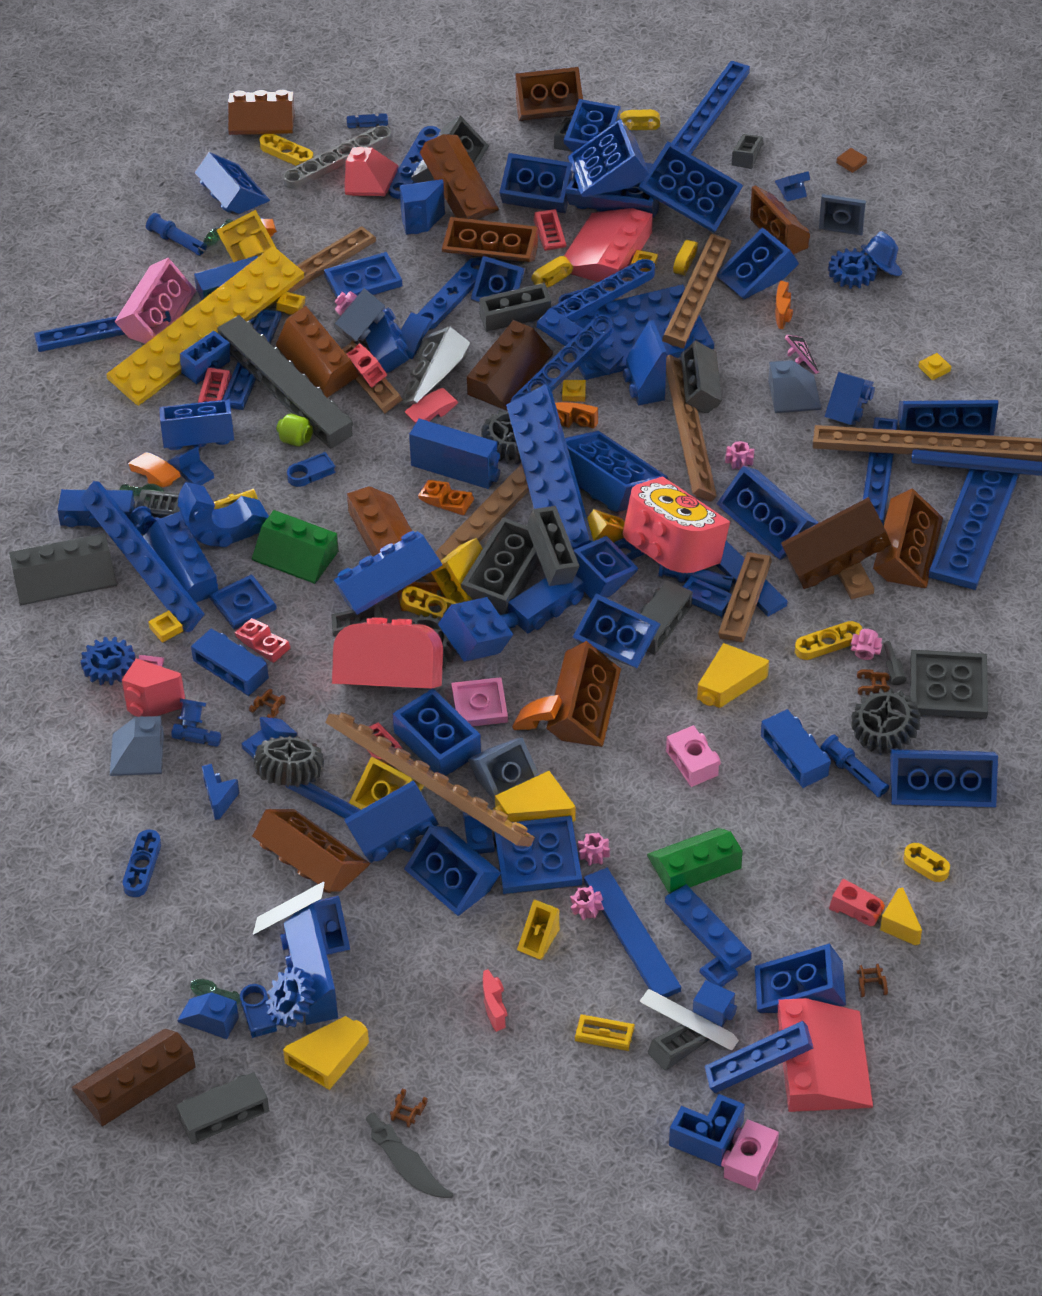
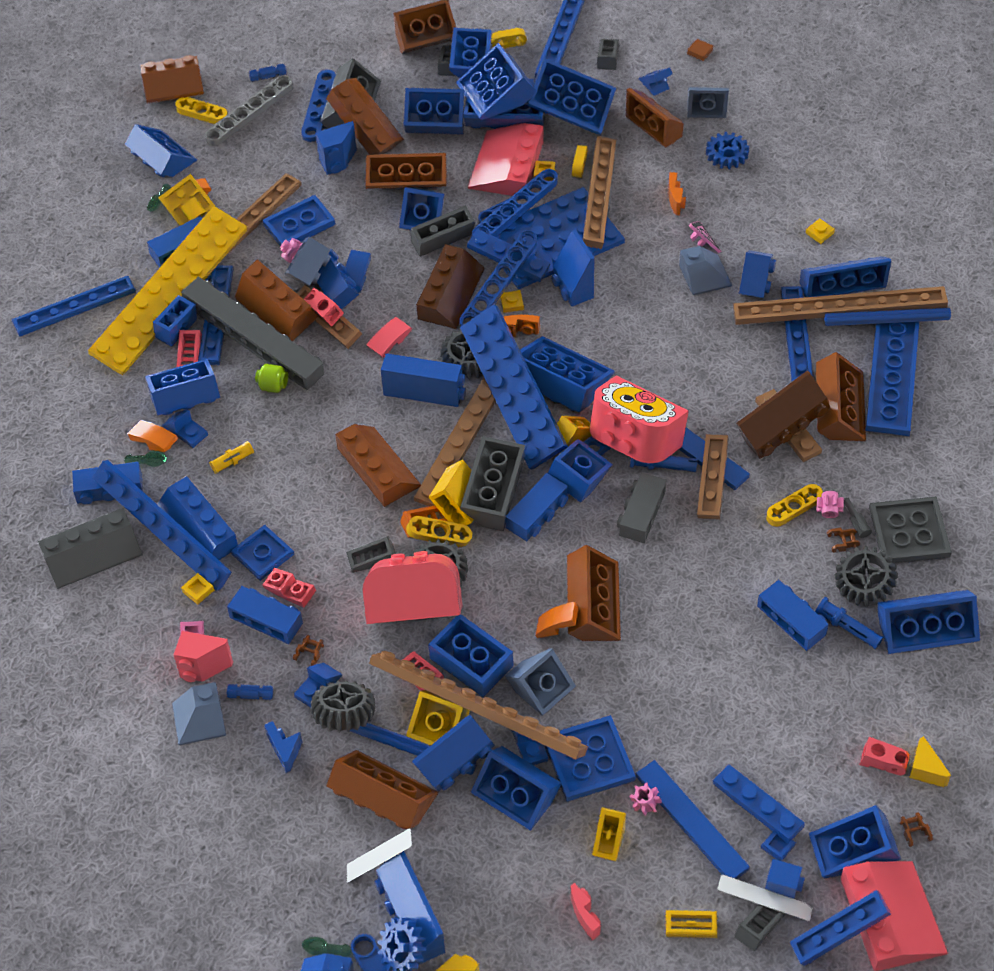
camera: 10 degrees left, 5 degrees up
(107, 660) = (152, 631): blue gear -> none
(140, 854) = (224, 820): blue beam -> none
(142, 519) = (153, 487): blue brick -> none
(157, 292) = (118, 263): bright pink slope -> none
(161, 496) = (182, 462): dark grey slope -> none
(168, 230) = (112, 203): blue pin -> none
(191, 712) = (241, 670): blue brick -> none
(221, 525) = (226, 482): blue brick -> none
(290, 303) = (240, 256): yellow plate -> none
(295, 546) = (298, 492): green slope -> none
(314, 467) = (299, 412): blue piece -> none
(332, 925) = (422, 862): blue slope -> none
(368, 173) = (281, 122): coral slope -> none
(387, 571) = (391, 506): blue slope -> none
(436, 358) = (384, 289): light grey wedge -> none
(440, 495) = (417, 420): orange slope -> none
(442, 302) = (388, 214): blue piece -> none
(477, 628) = (484, 547): blue brick -> none
(480, 701) = (501, 615): bright pink plate -> none
(535, 799) = (575, 706): yellow slope -> none
(549, 216) = (450, 140): coral slope -> none
(552, 272) = (466, 193): yellow beam -> none
(552, 545) = (535, 458): dark grey brick -> none
(593, 848) = (642, 744): bright pink gear -> none
(616, 631) = (611, 530): blue slope -> none
(690, 434) = (625, 325): medium nougat plate -> none
(693, 755) = (707, 649): bright pink brick -> none
(697, 859) = (732, 737): green slope -> none
(701, 377) = (622, 273): dark grey brick -> none
(708, 596) = (679, 480): blue plate -> none
(730, 675) = (718, 554): yellow slope -> none
(739, 455) = (673, 341): bright pink gear -> none
(758, 265) = (645, 159): blue slope -> none
(764, 510) = (711, 392): blue slope -> none
(884, 253) = (751, 131): blue piece -> none
(926, 862) = (934, 705): yellow beam -> none

